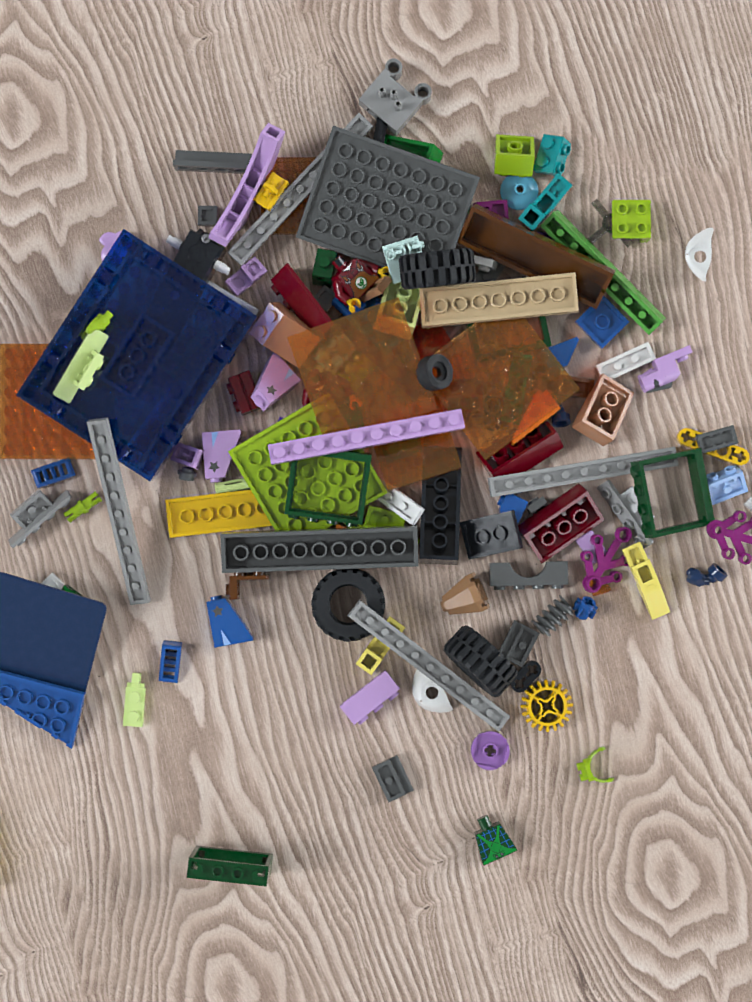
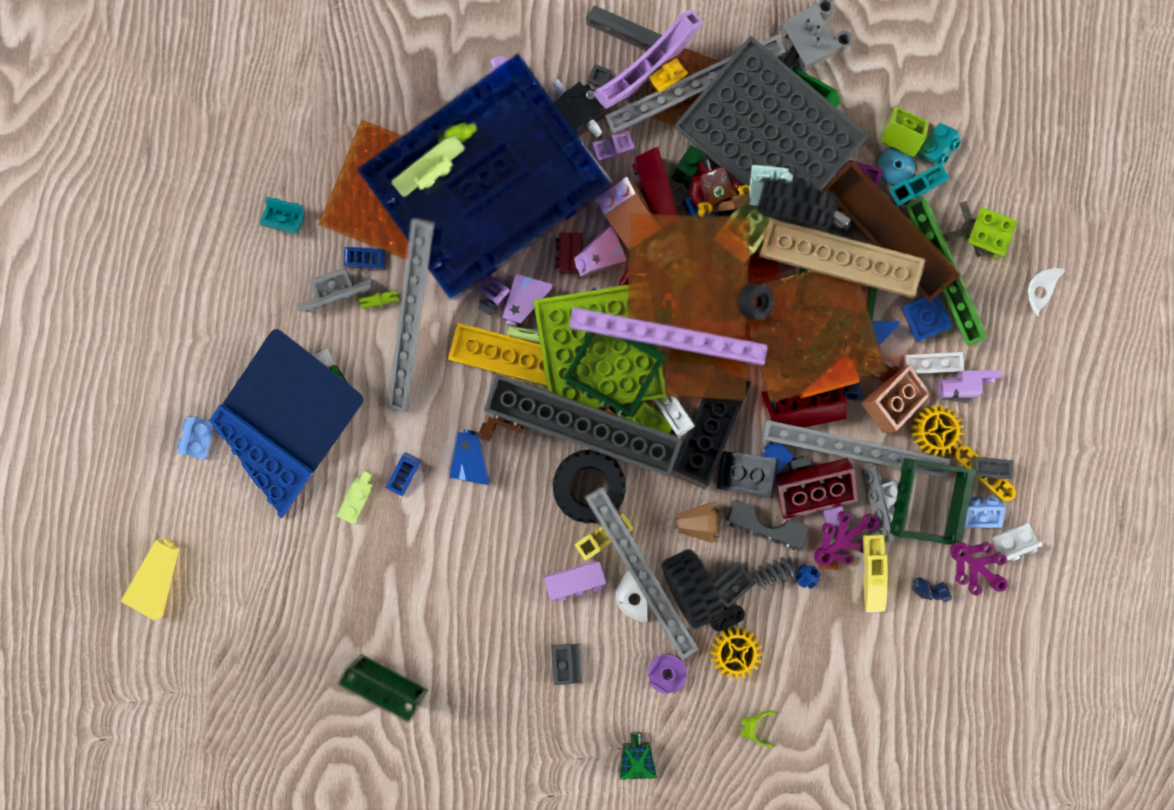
camera: 20 degrees right, 0 degrees up
(658, 431) = (939, 437): none -> yellow gear

